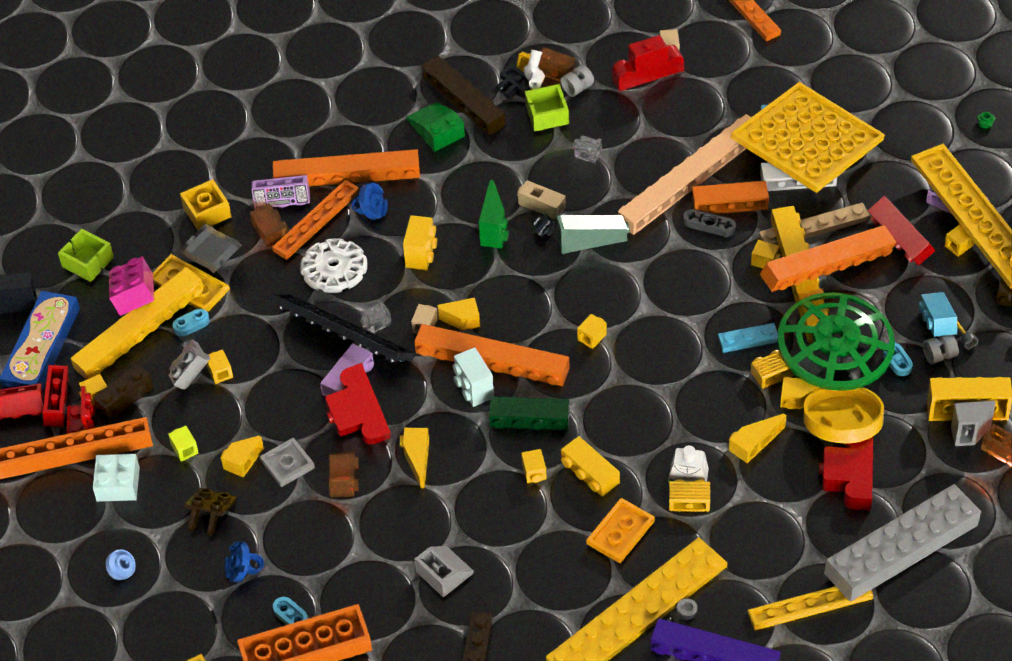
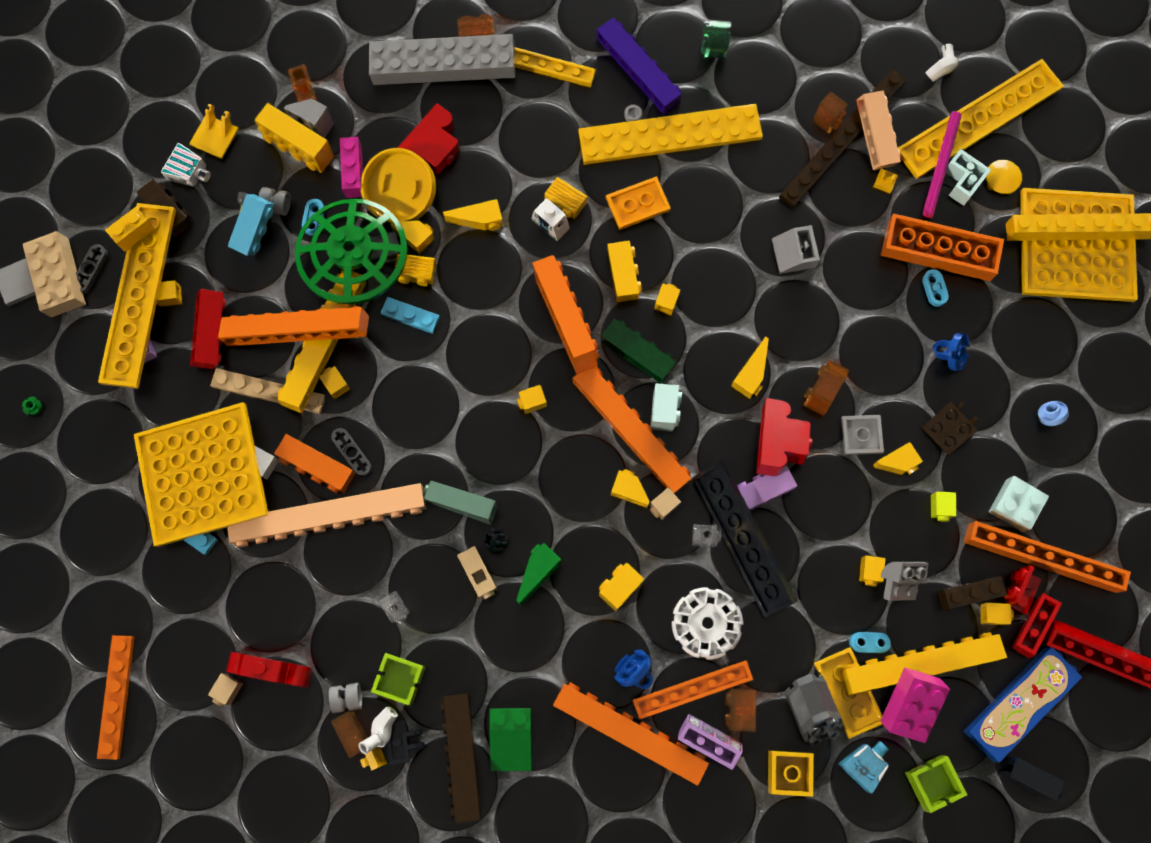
camera: 150 degrees left, 25 degrees up
(149, 241) = (866, 765): none -> medium azure torso
(611, 390) = (566, 314): none -> orange brick
(898, 592) = (476, 26): none -> clear orange brick
(902, 412) = (351, 166): none -> dark pink brick

